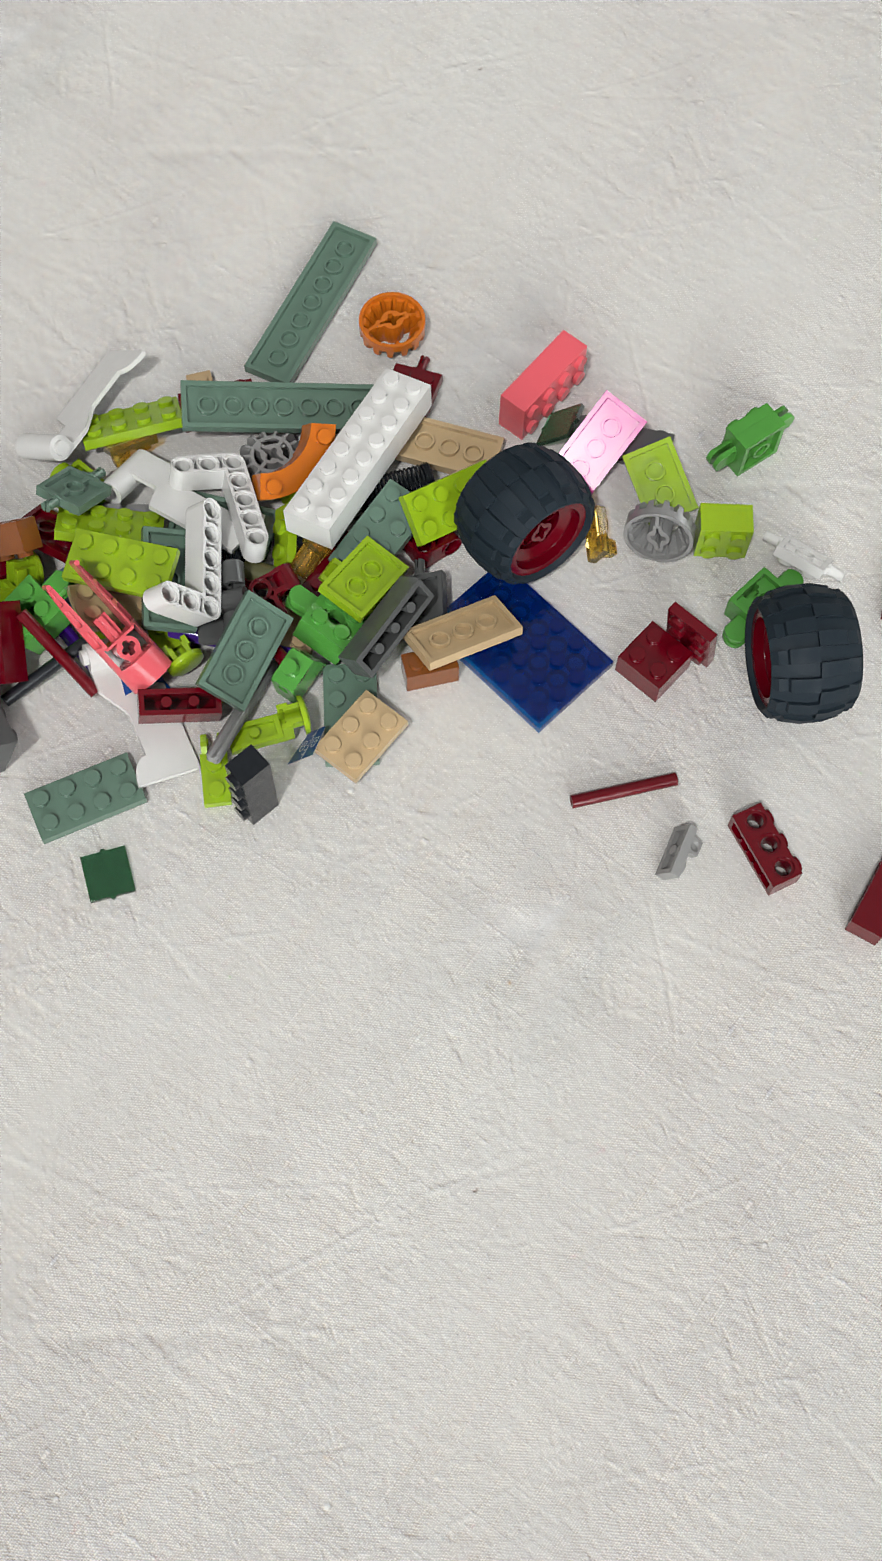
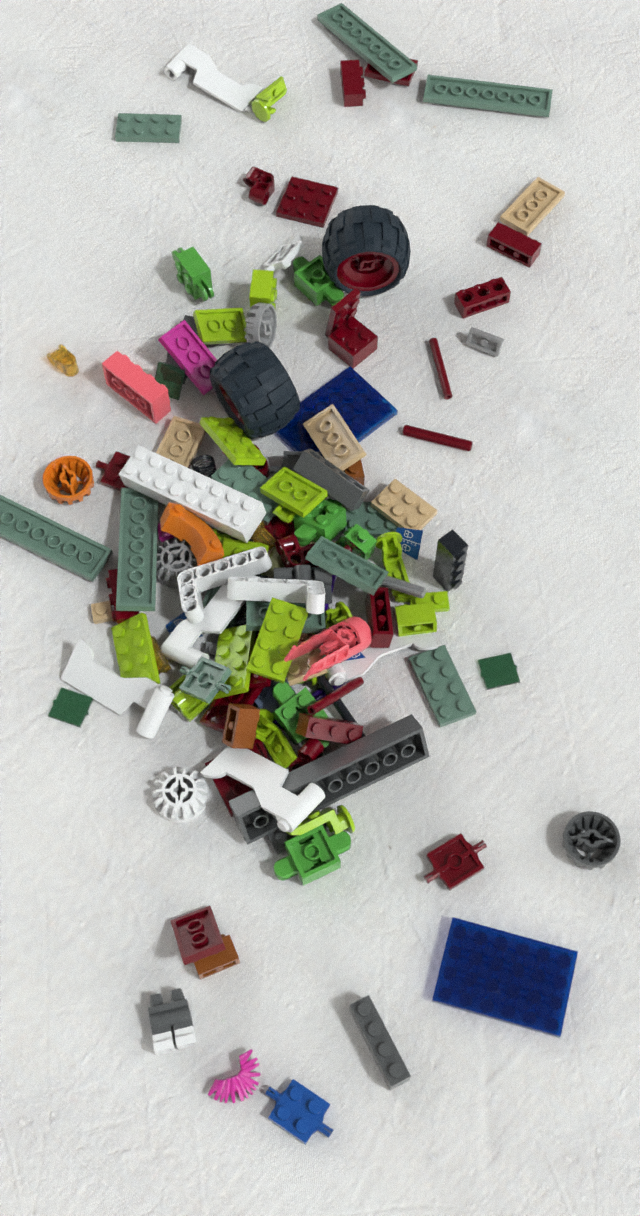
camera: 85 degrees left, 5 degrees down
(69, 366) = (70, 707): none -> clear green piece
(179, 755) = (416, 619): none -> lime brick
(494, 787) = (437, 437): none -> dark red axle
(588, 302) = (64, 361): none -> clear yellow piece

